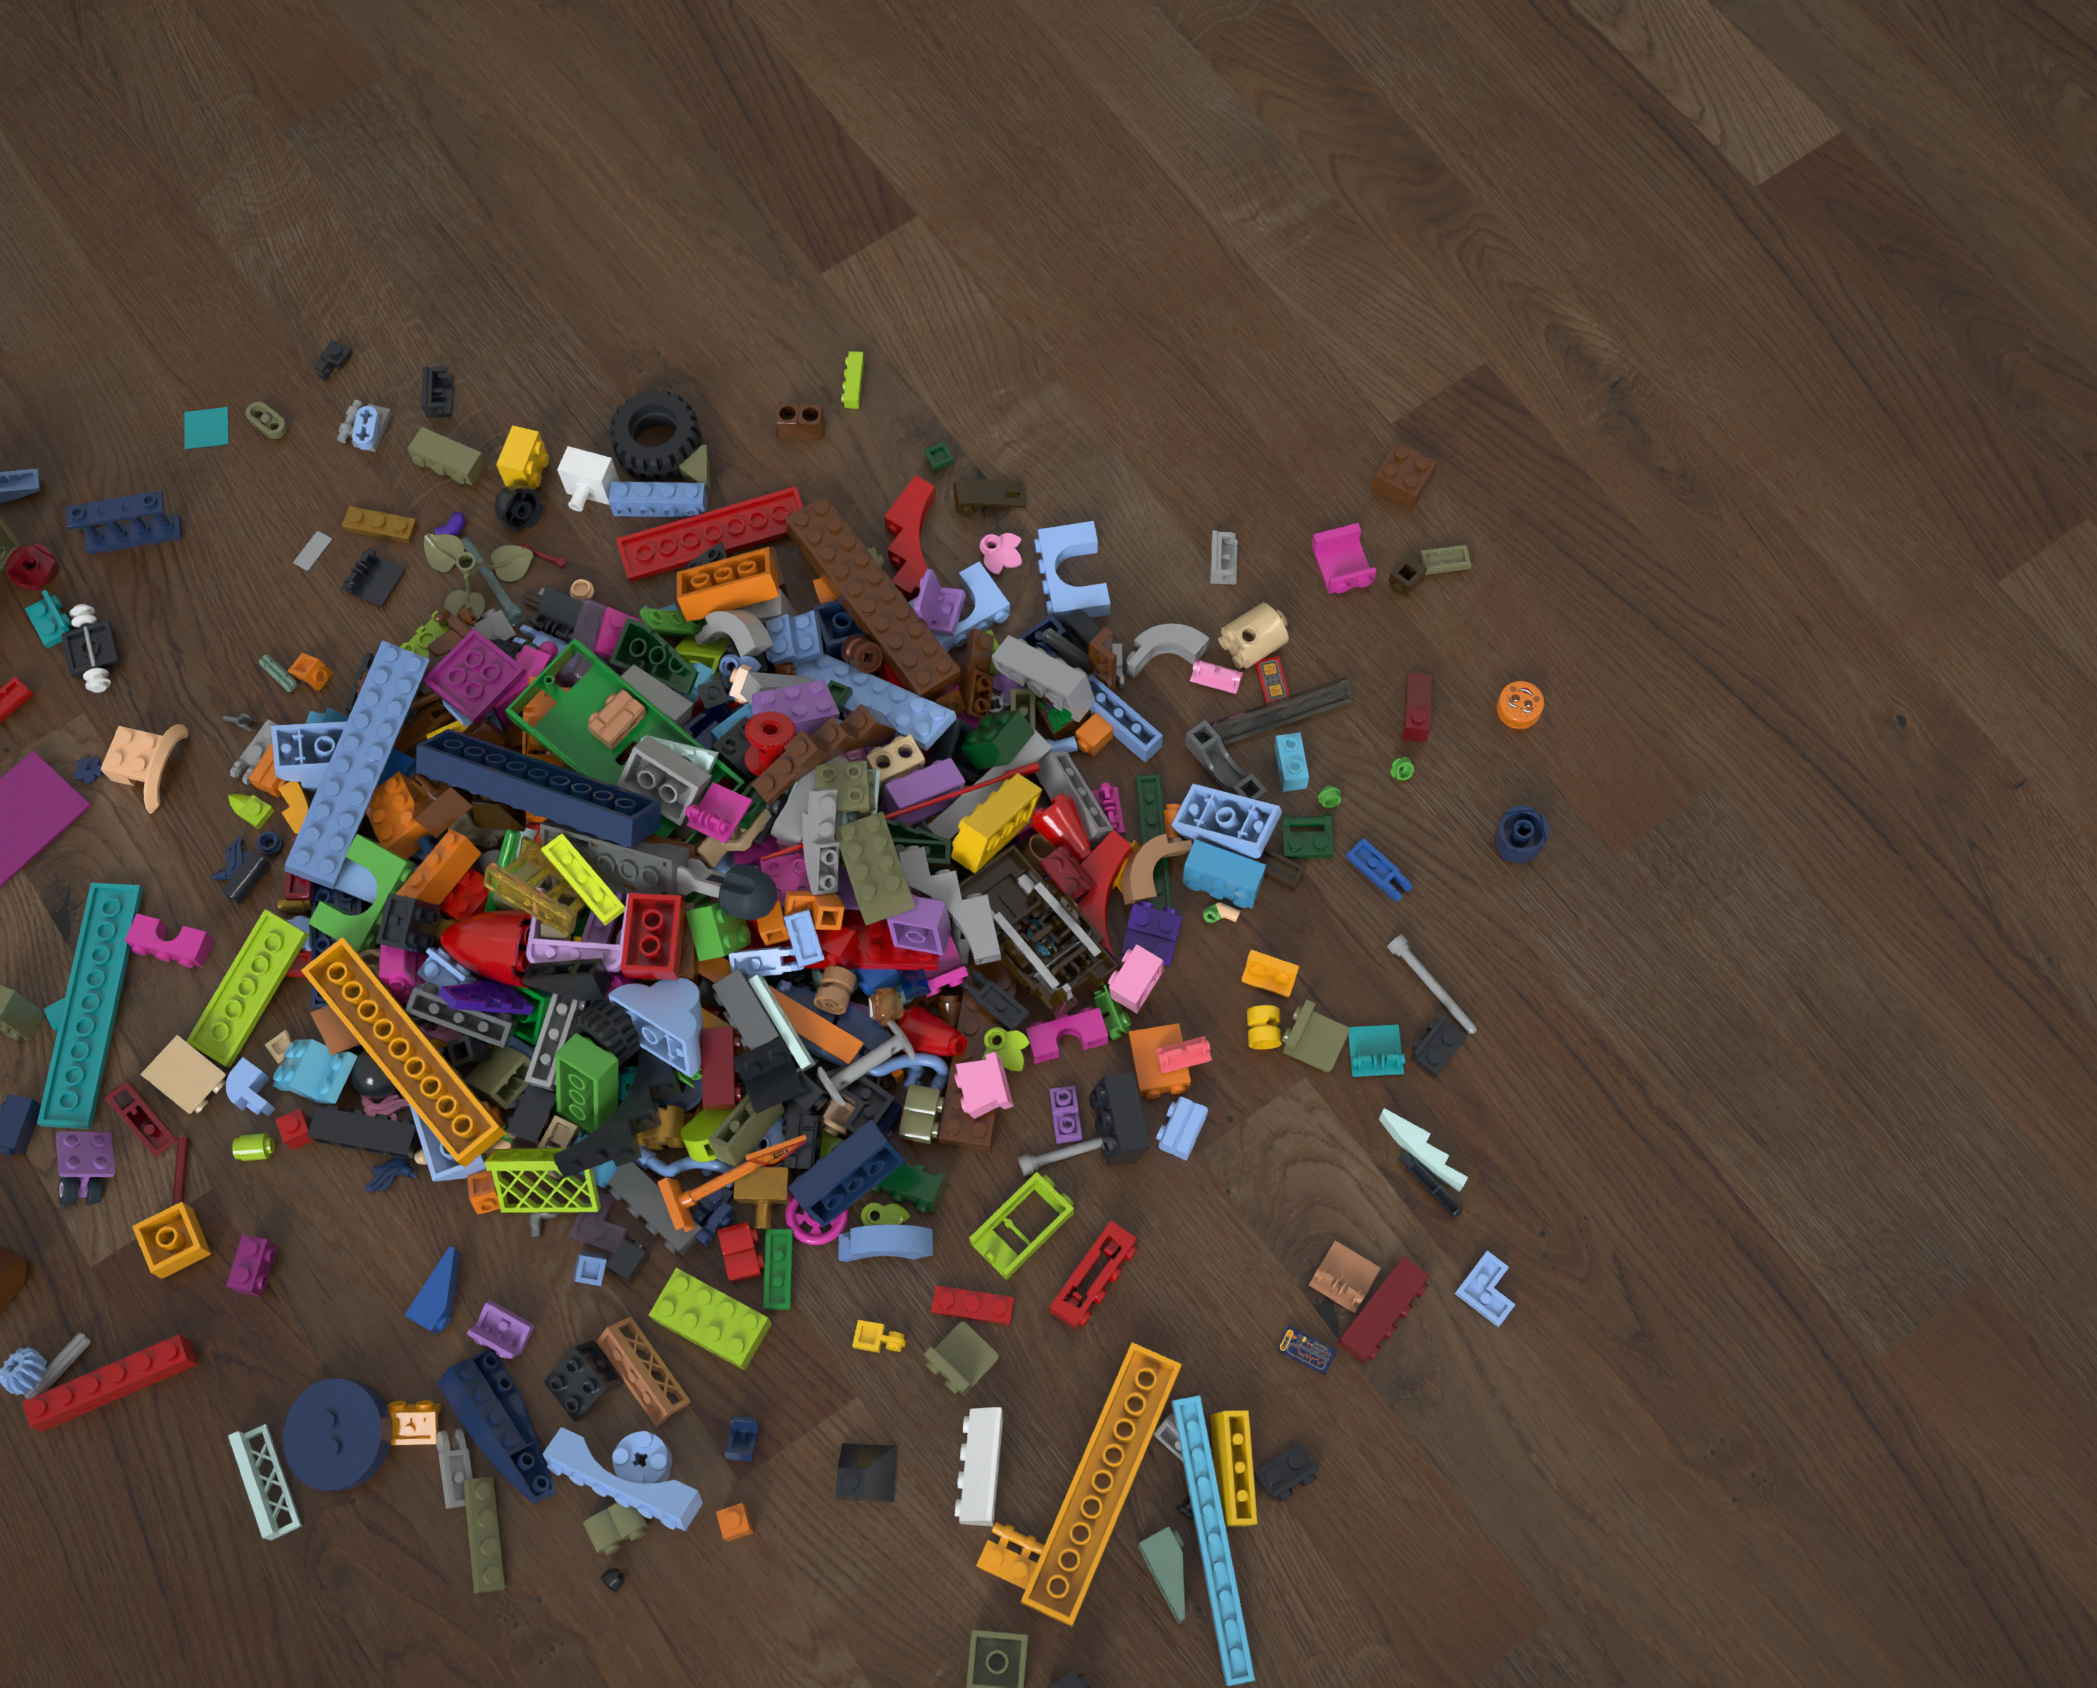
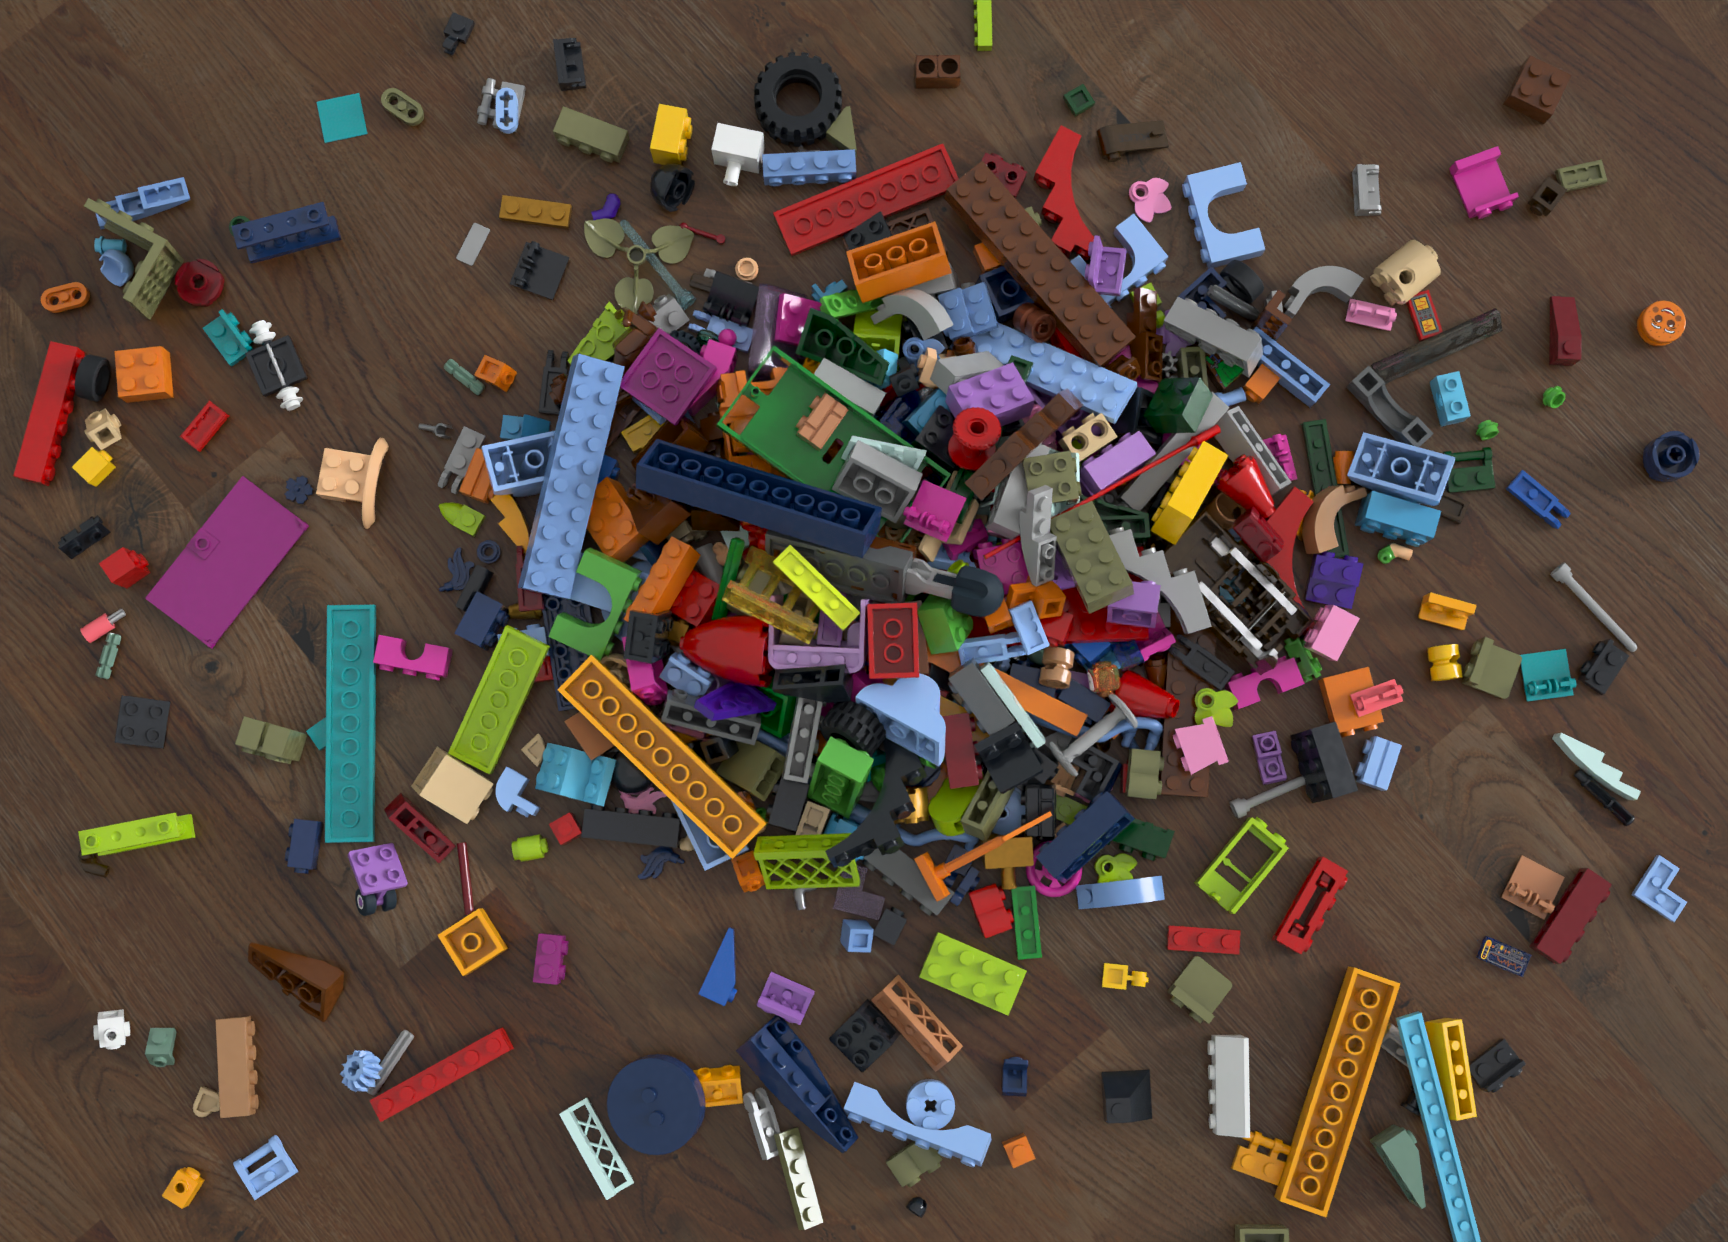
camera: 10 degrees left, 15 degrees up
(243, 905) = (482, 621): none -> dark blue brick
(860, 520) = (1010, 175): none -> dark red brick

